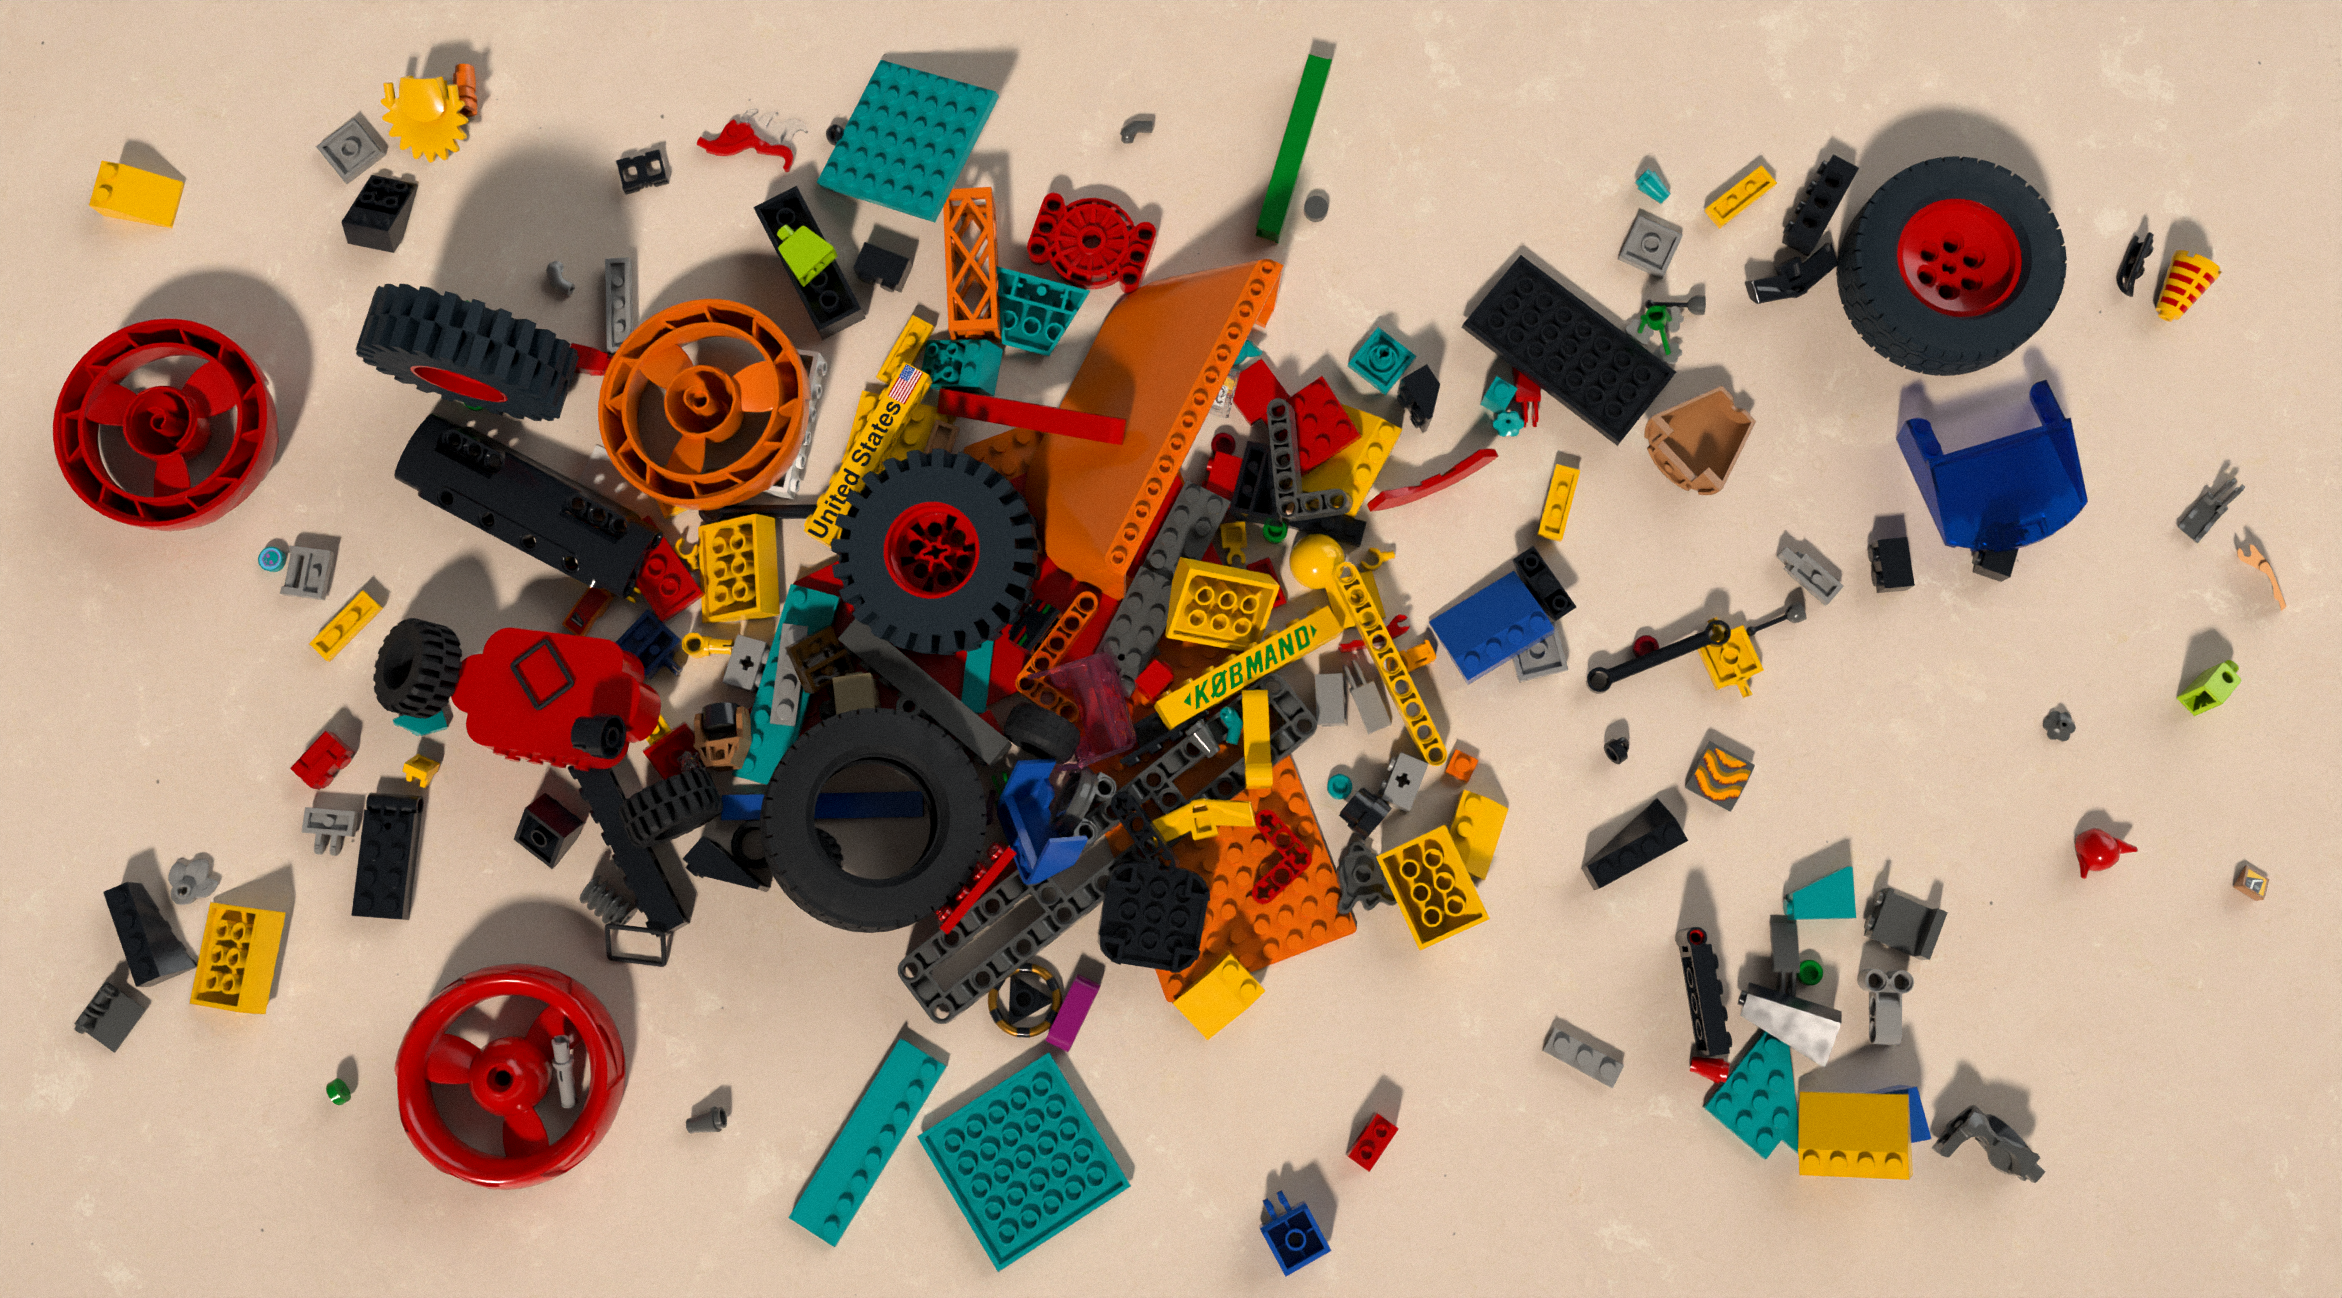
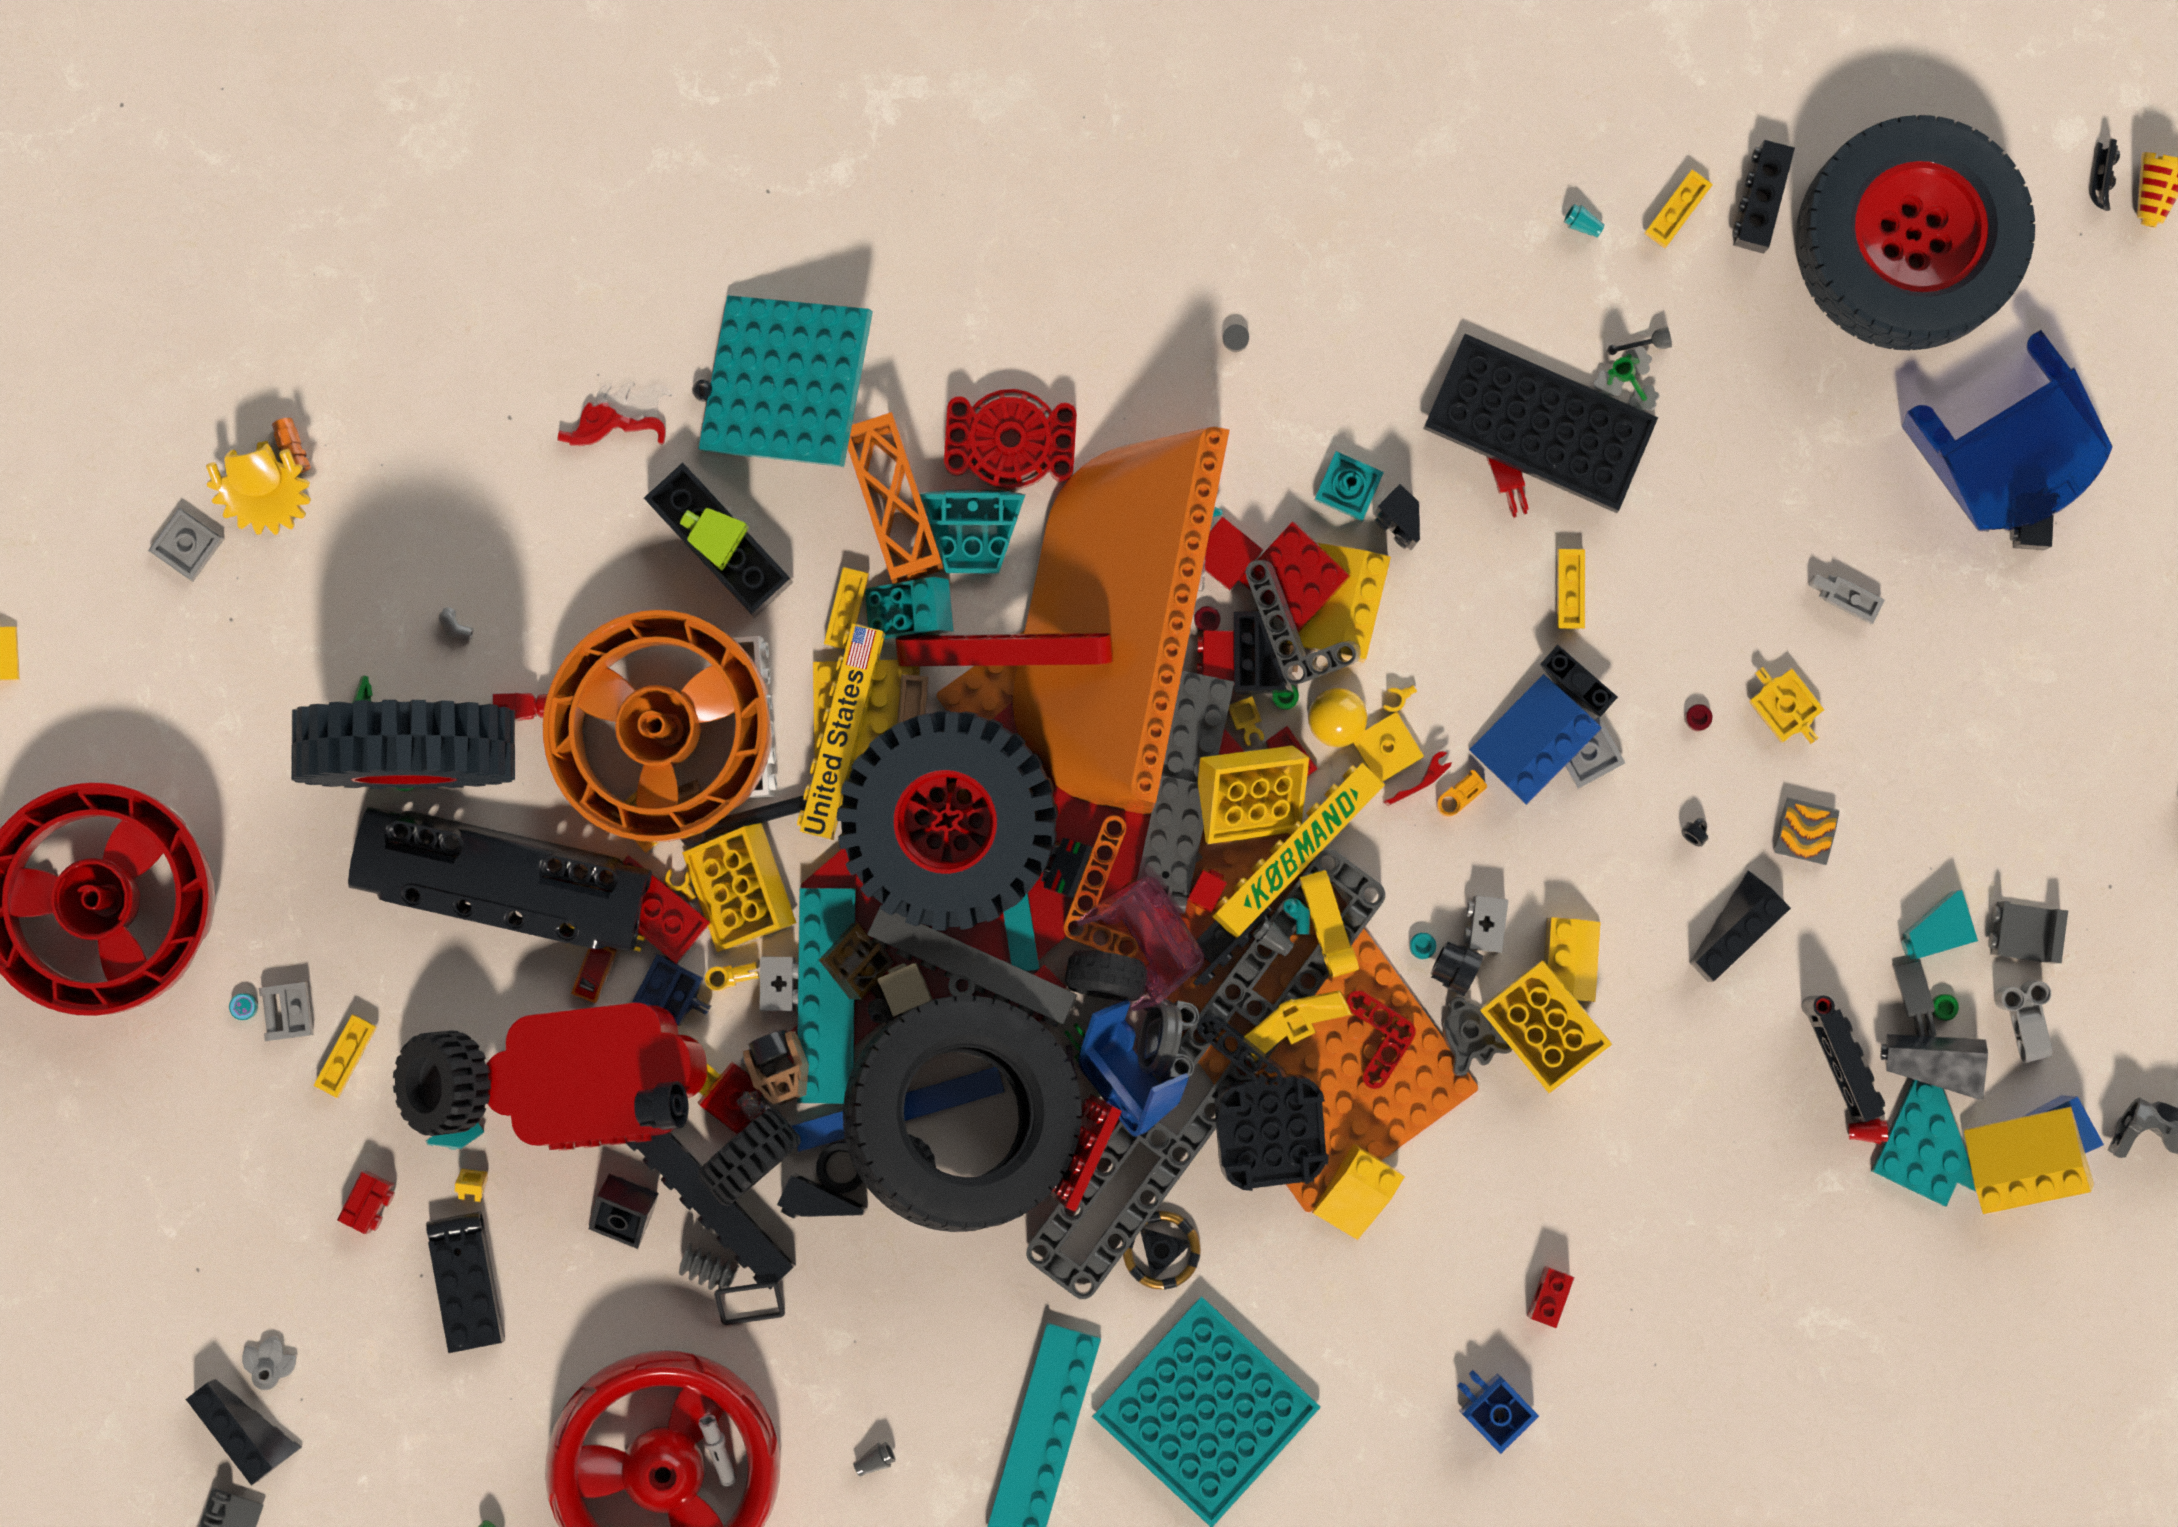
camera: 20 degrees left, 5 degrees up
(237, 958) = (342, 1428): yellow slope -> none
(329, 822) = (394, 1264): light grey hinge -> none
(380, 214) = (241, 605): black slope -> none
(559, 663) = (611, 1057): black piece -> none
(602, 474) = (563, 822): white sticker -> none
(618, 302) = (528, 638): light grey plate -> none
(643, 177) = (512, 493): black piece -> none
(787, 682) = (826, 990): light grey plate -> none
(882, 268) = (796, 524): black brick -> none
(1073, 1013) = (1214, 1250): magenta beam -> none
(1133, 128) = (1018, 301): dark grey arm -> none
(1293, 148) = (1195, 278): green tile -> none
(1331, 699) = (1390, 859): light grey hinge -> none
(1338, 527) = (1356, 676): black plate -> none
(1367, 700) = (1428, 849): light grey arm -> none
(1398, 672) = (1453, 814): yellow beam -> none
(1408, 494) = (1435, 605): red tile -> none
(1461, 766) = (1541, 891): orange plate -> none
(1498, 395) = (1481, 492): teal brick -> none
(1508, 423) = (1498, 518): teal plant -> none
(1583, 1058) = (1739, 1154): light grey plate -> none
(1650, 247) = (1597, 287): light grey tile -> none
(1658, 656) = (1714, 724): black piece -> none
(1699, 440) = (1702, 486): medium nougat cone -> none
(1793, 277) = (1754, 282): black plate -> none
(1794, 613) = (1840, 641): hinge -> none
(1891, 565) = (1928, 564): black brick -> none
(2054, 726) = (2131, 687): dark grey plant -> none

